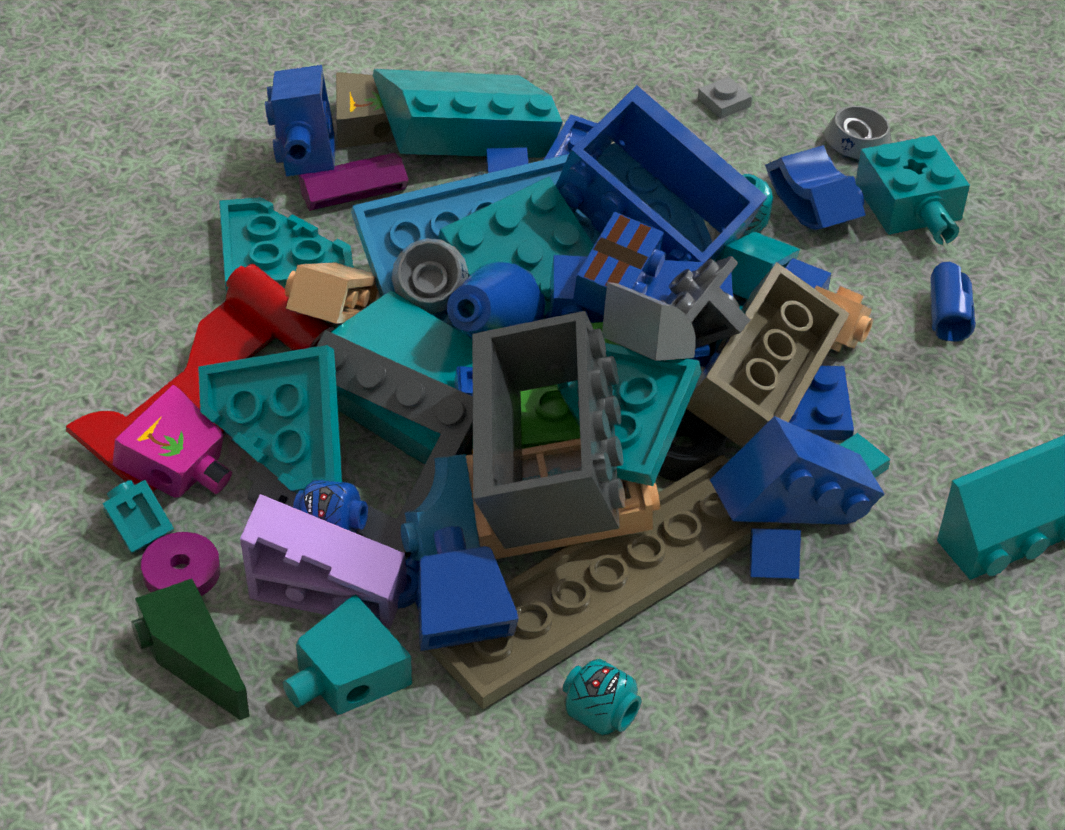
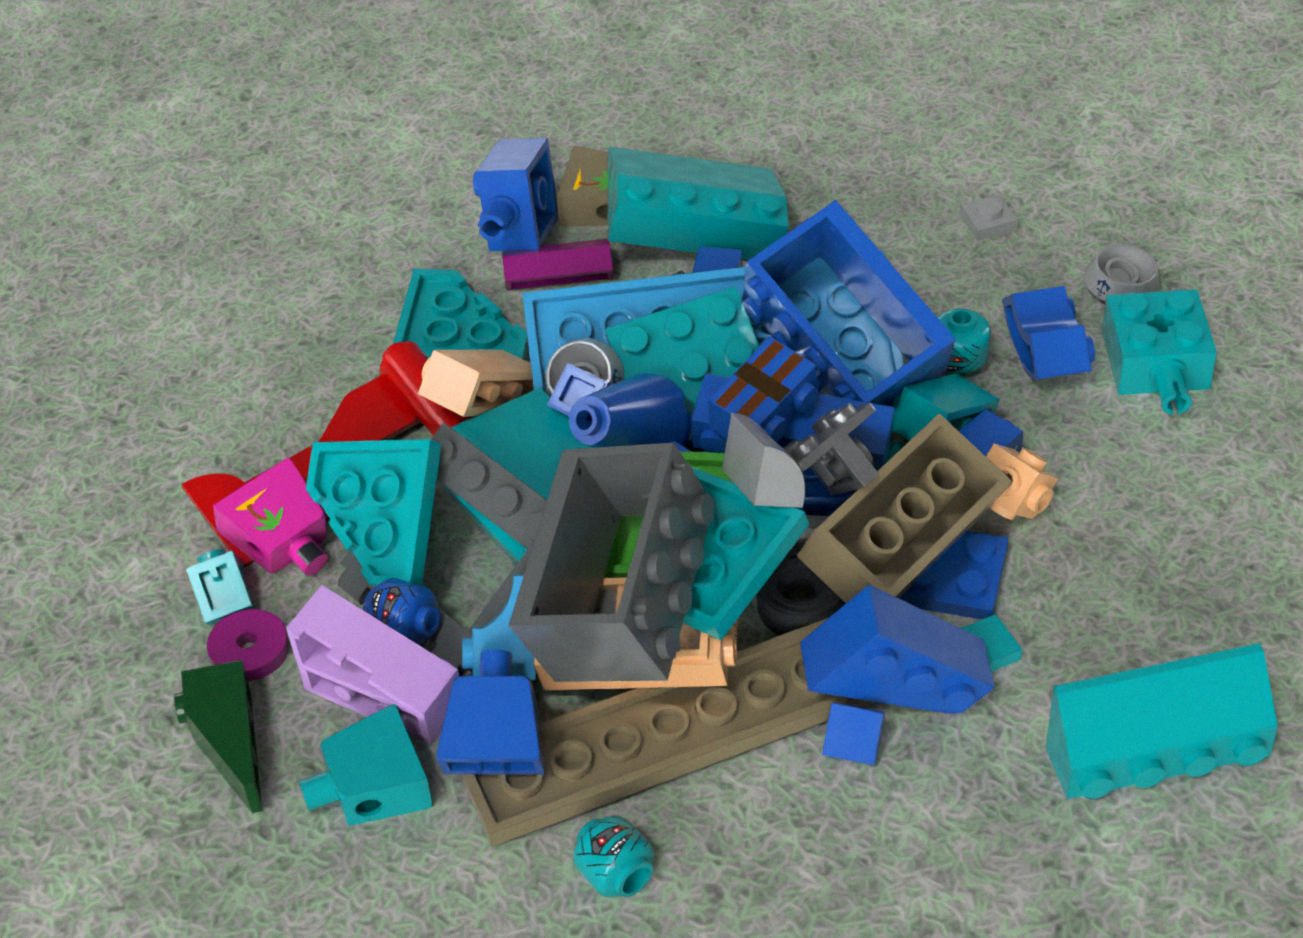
camera: 20 degrees right, 0 degrees up
(433, 289) = (572, 386): none -> tile
(951, 303) = (1155, 483): blue arm -> none

